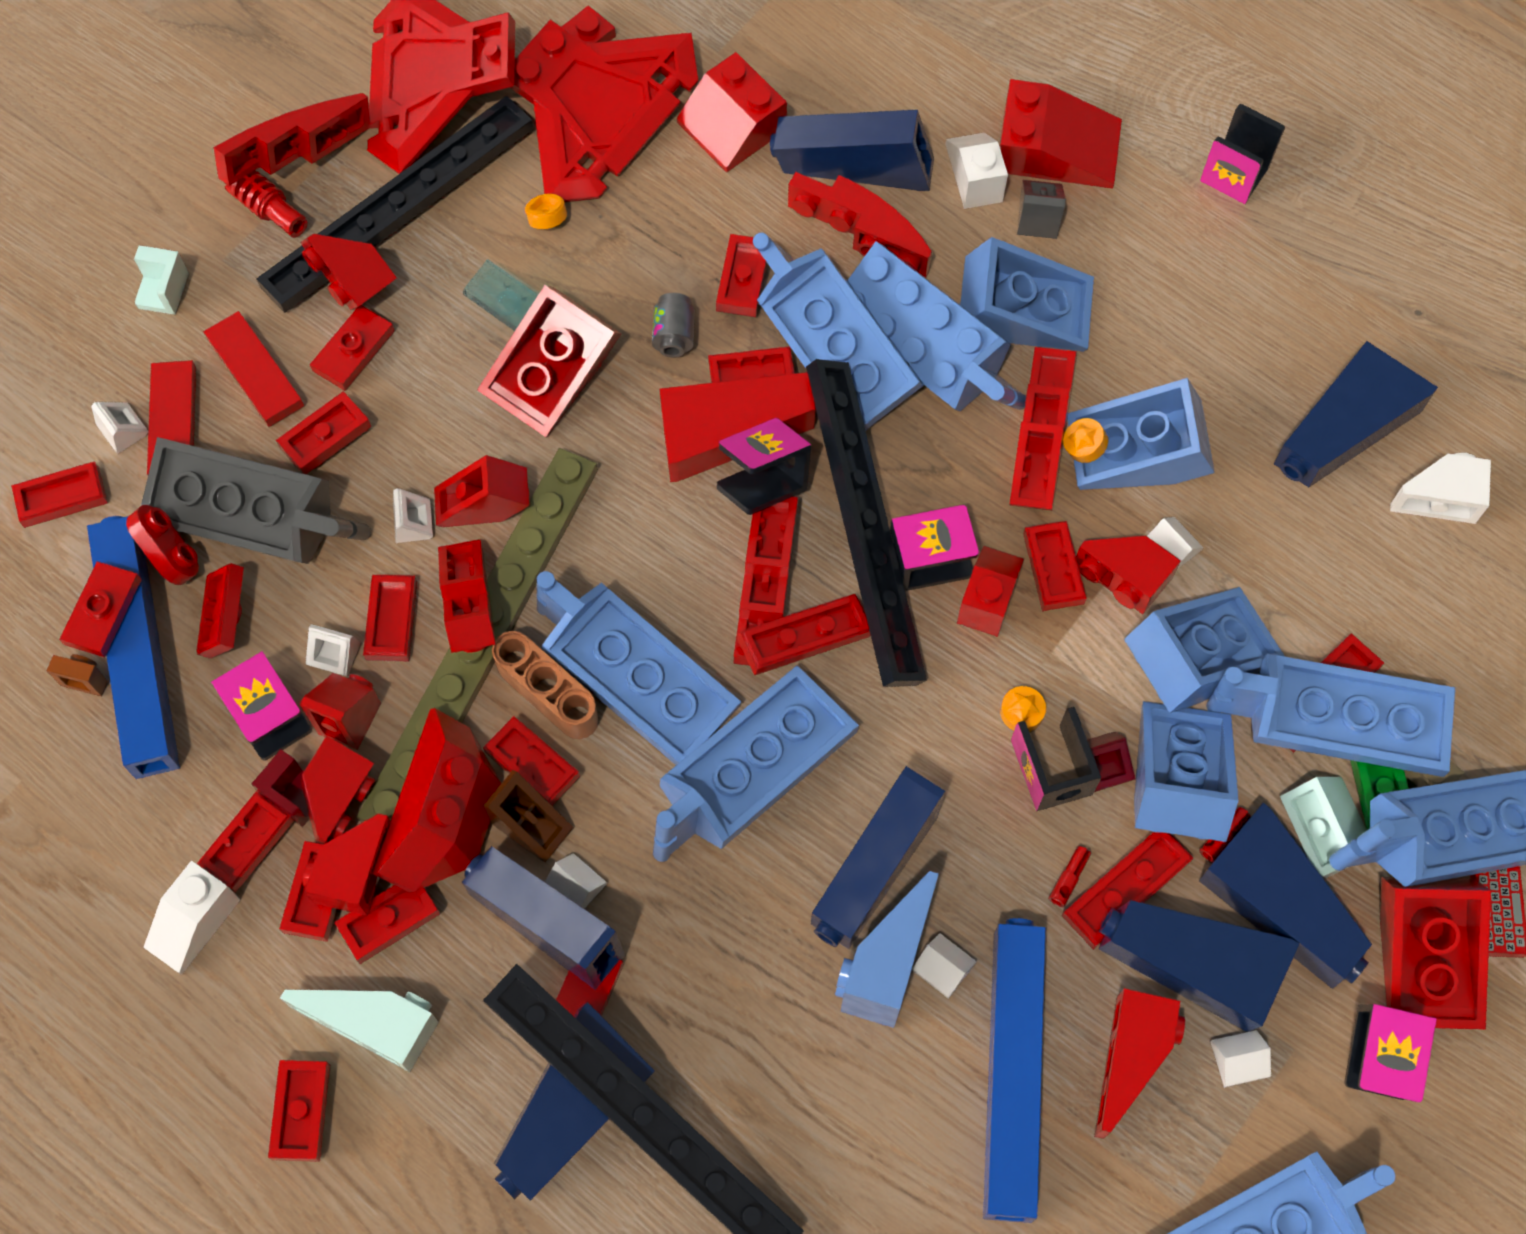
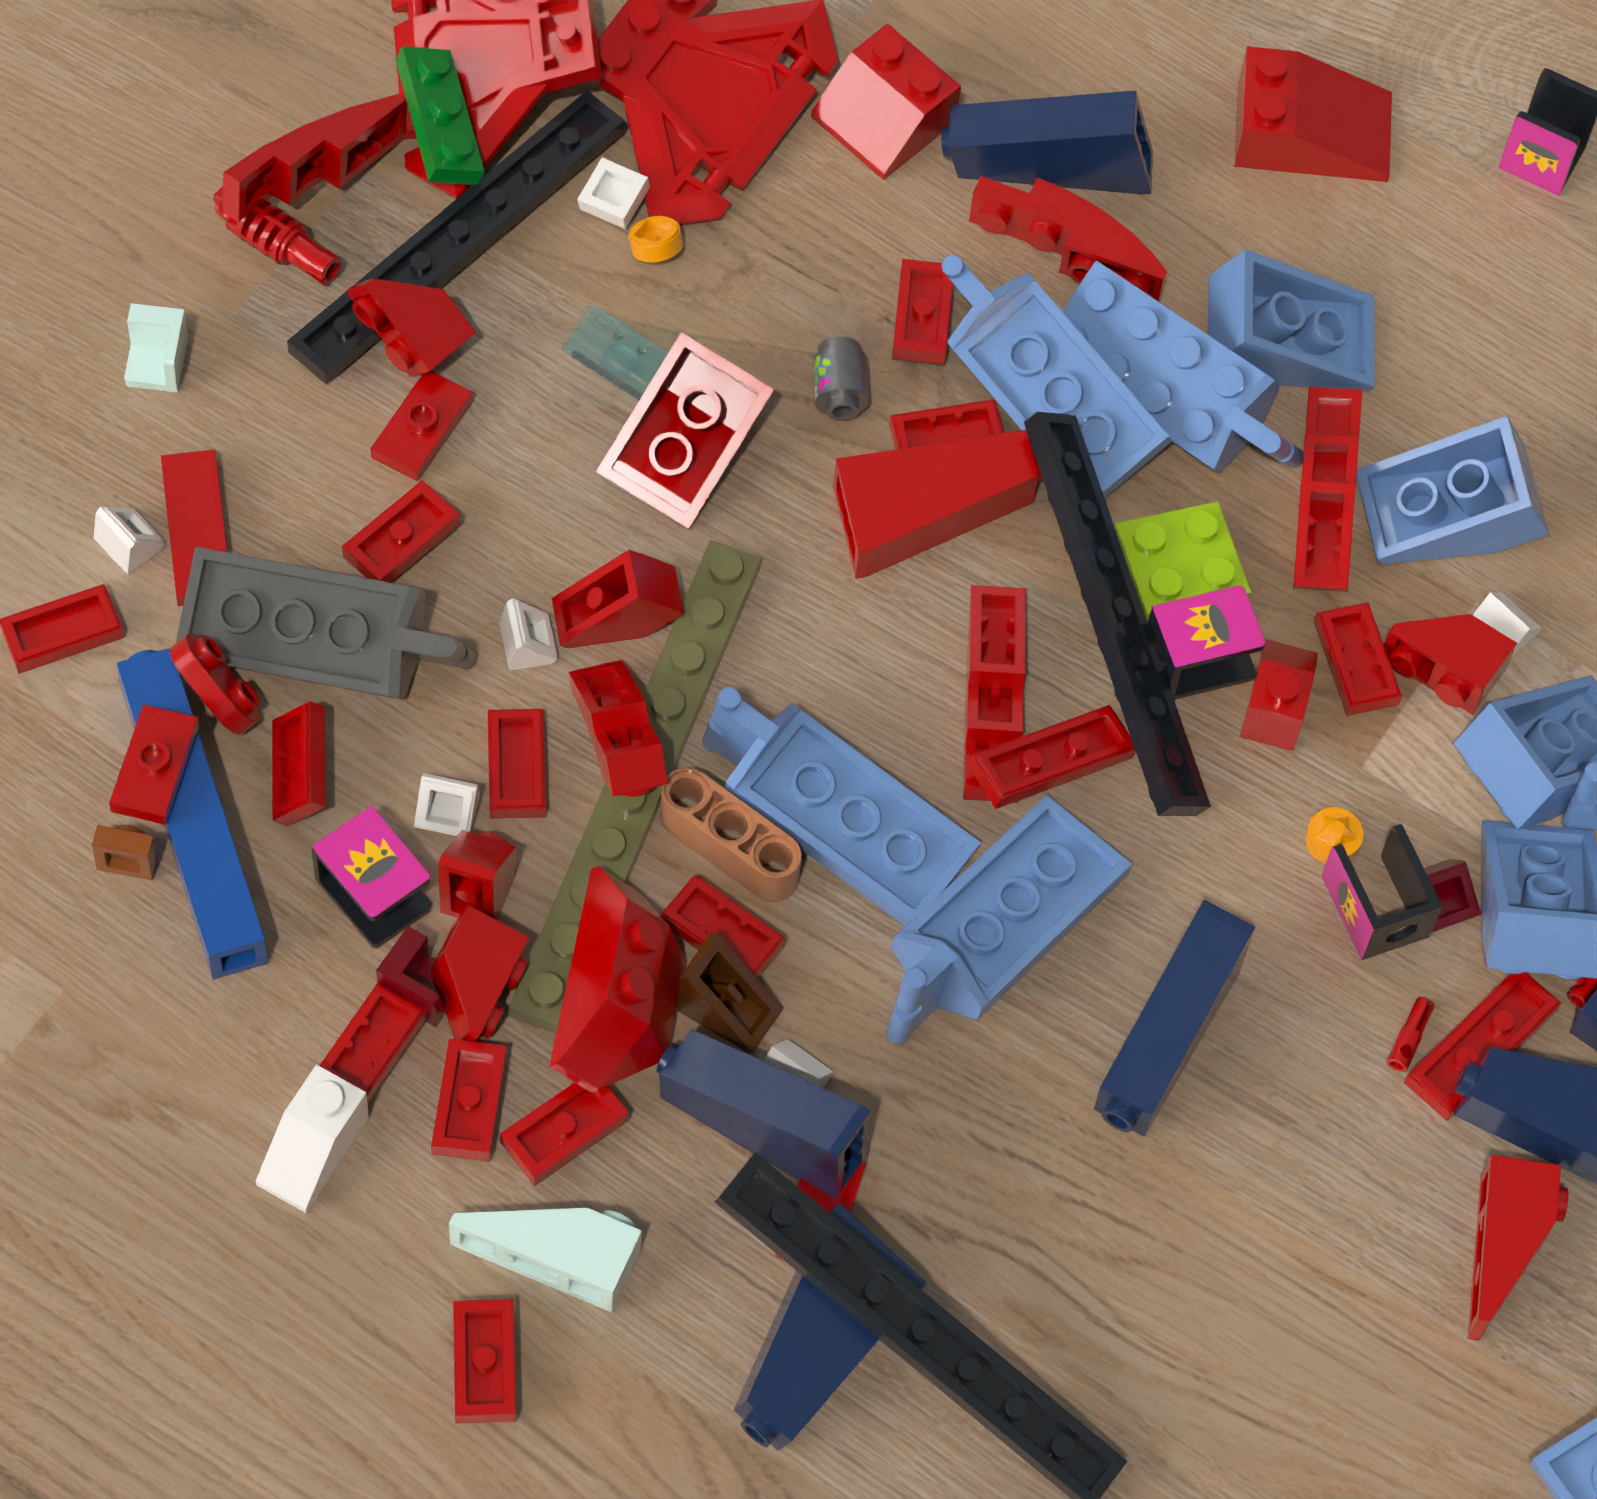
camera: 10 degrees left, 5 degrees down
(253, 369) = (295, 457): red tile -> none
(344, 867) = (513, 1064): red slope -> none
(389, 111) = (439, 115): none -> green plate
(518, 175) = (613, 193): none -> white plate
(766, 473) = (988, 563): piece -> none
(883, 961) = (1191, 1157): medium blue slope -> none
(923, 476) = (1180, 554): none -> lime plate
(943, 965) = (1264, 1148): white slope -> none
(978, 169) = (1213, 163): white slope -> none
(1014, 1073) = (1365, 1265): blue brick -> none
(1040, 209) = (1299, 211): dark grey slope -> none
(1085, 440) = (1383, 501): light orange tile -> none

